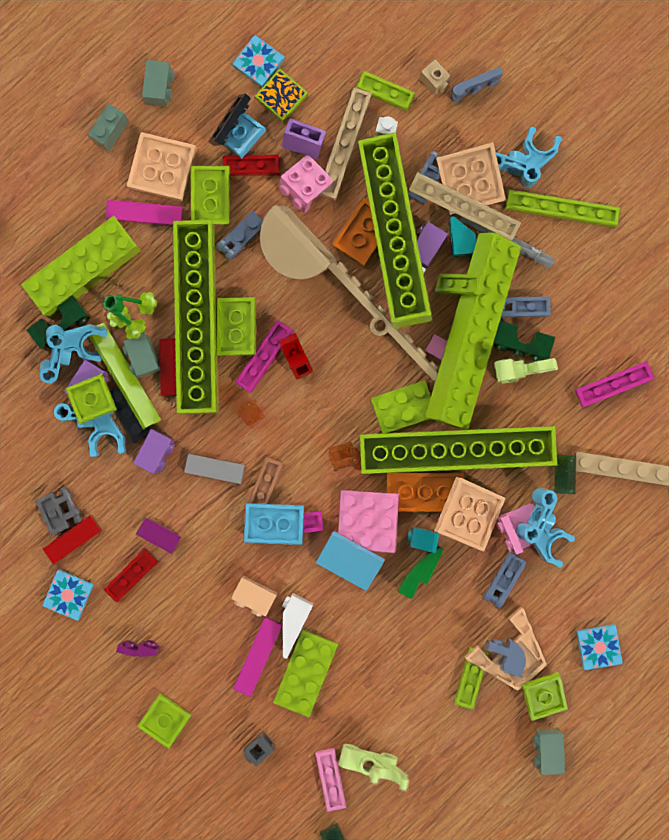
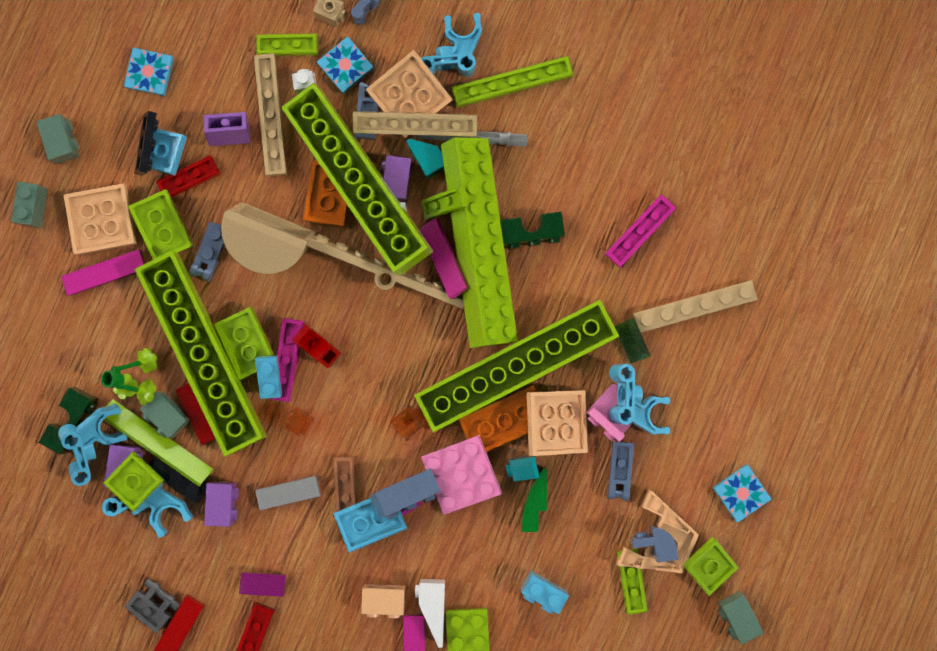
camera: 25 degrees left, 0 degrees up
(81, 267) = (65, 354): lime brick -> none
(243, 363) = (268, 376): none -> medium azure plate
(281, 95) = (186, 95): tile -> none
(304, 183) = (248, 171): bright pink bracket -> none
(314, 515) = (405, 494): none -> sand blue brick
(350, 561) = (461, 522): medium azure tile -> none
(393, 652) = (544, 592): none -> medium azure brick
(402, 407) = (443, 347): lime plate -> none
(427, 130) = (345, 65): none -> tile
(437, 332) = (444, 259): none -> dark pink tile
(510, 370) = (534, 264): yellowish green piece -> none
(527, 307) = (521, 194): sand blue plate -> none

